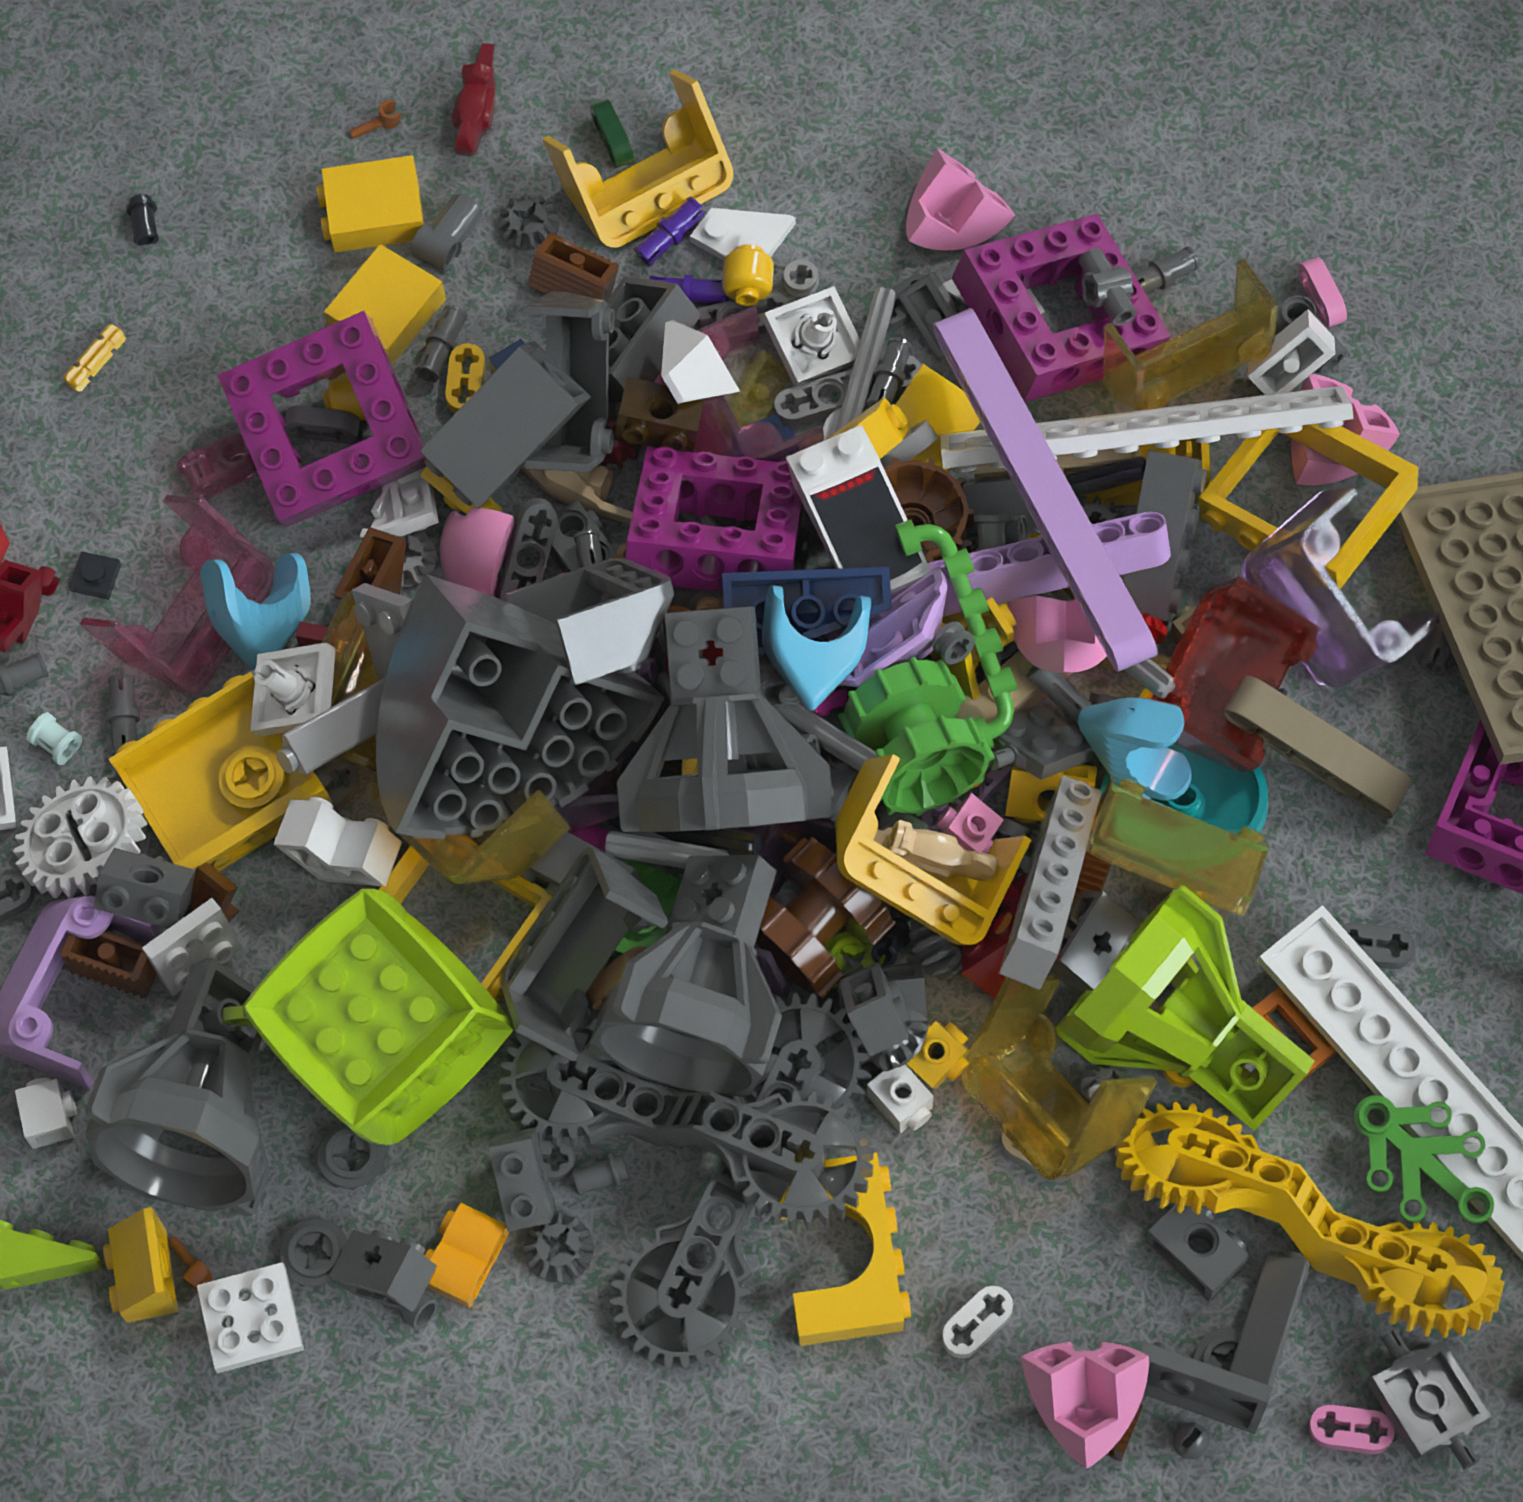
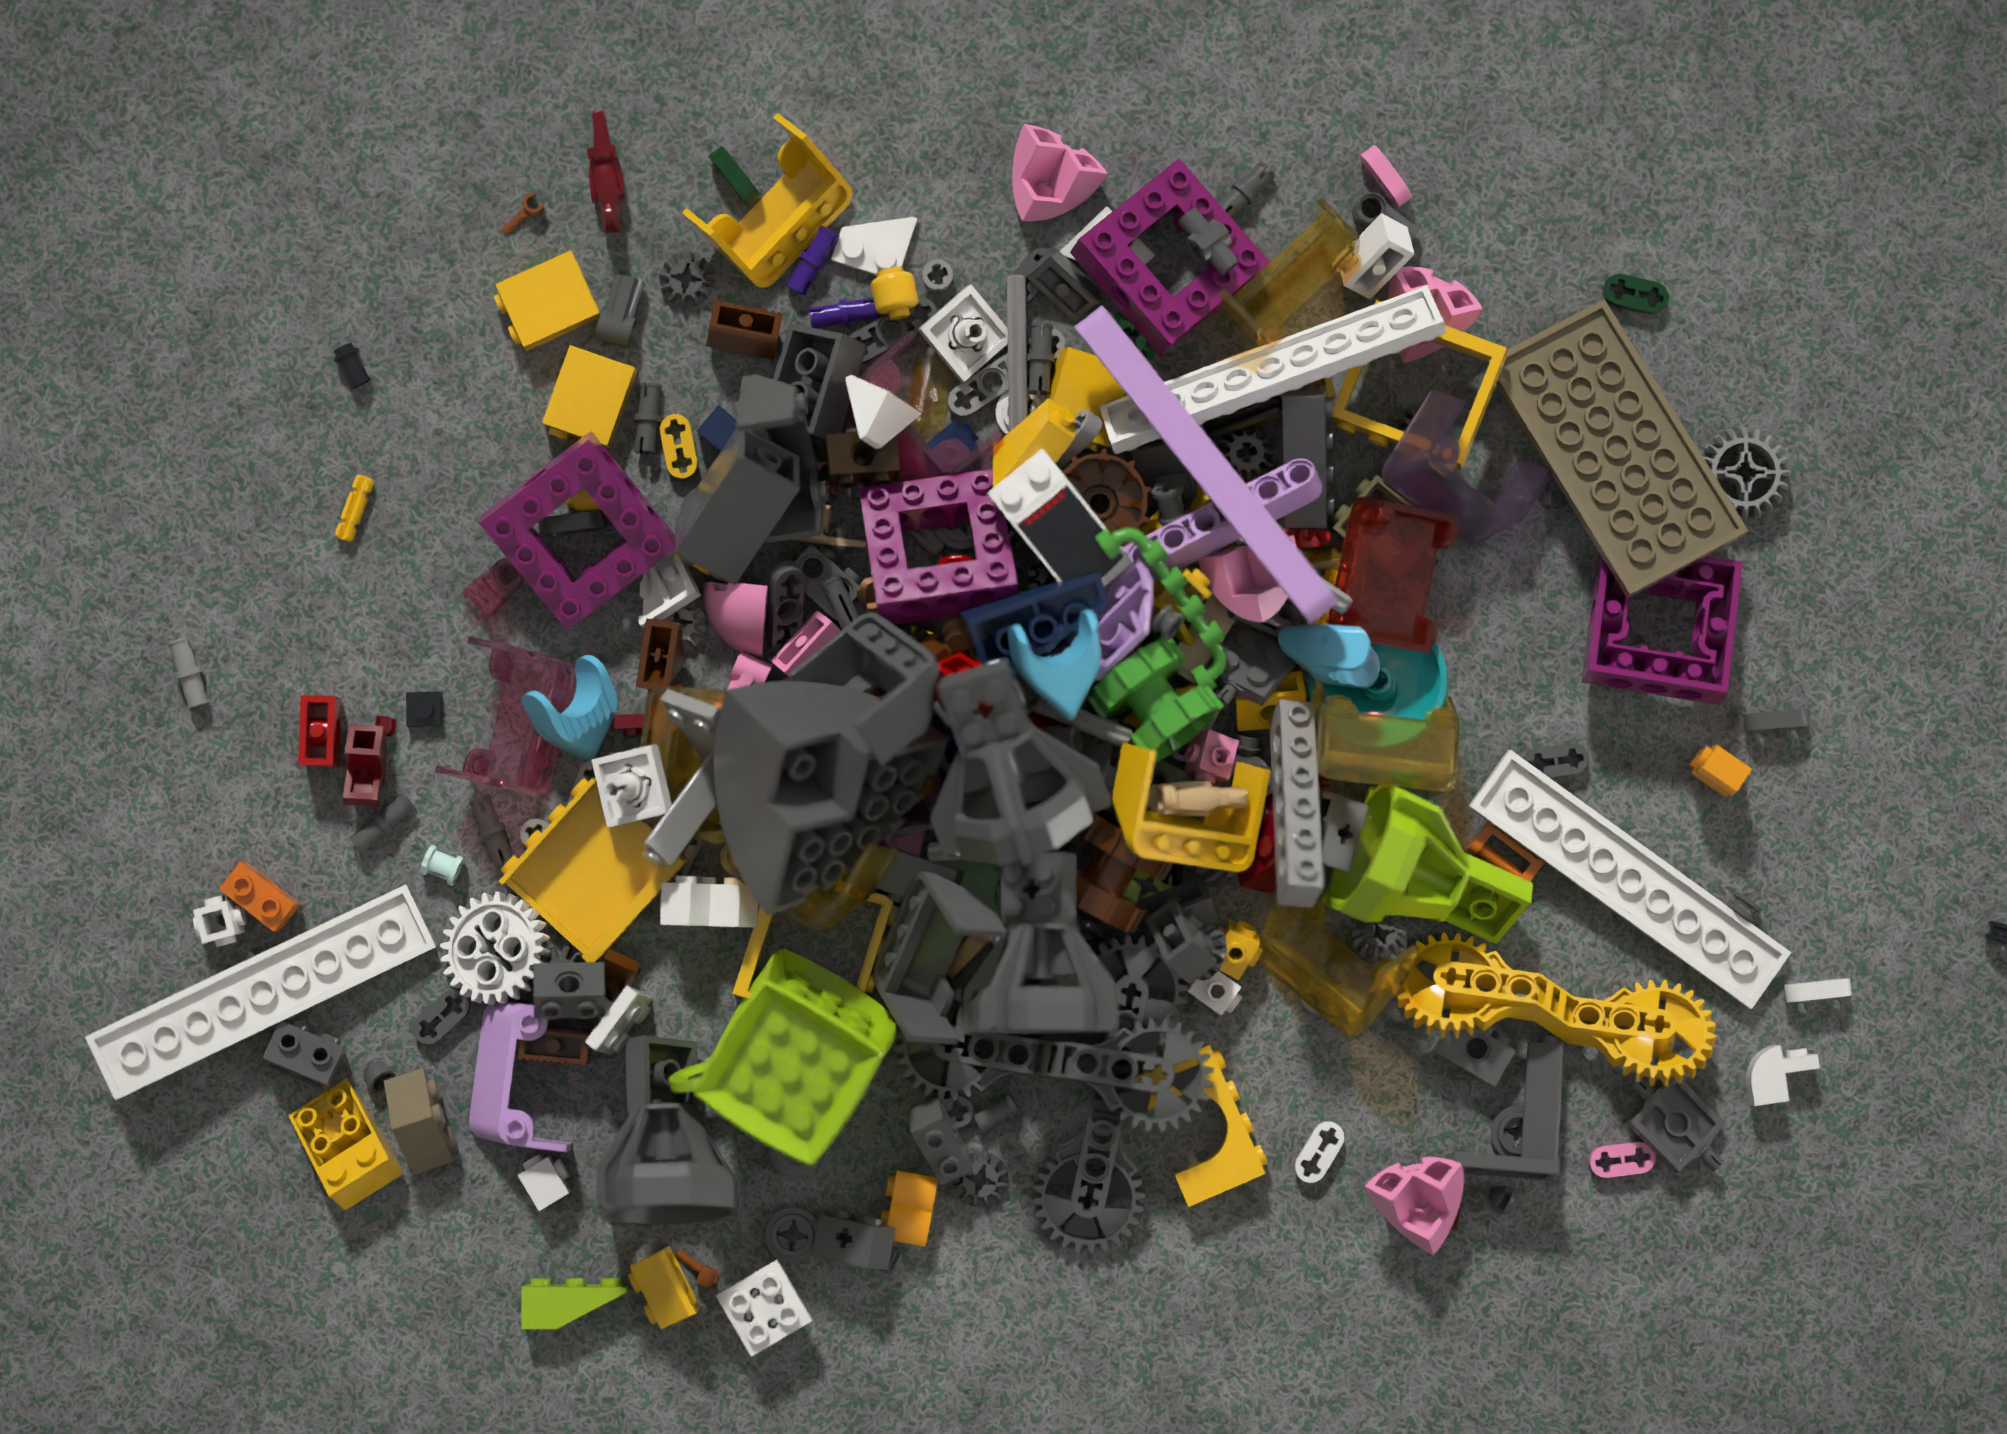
camera: 15 degrees left, 20 degrees up
(234, 772) = (602, 861): yellow gear -> none
(1317, 746) = (1475, 611): dark tan beam -> none
(1418, 1154) = (1628, 935): bright green plant -> none

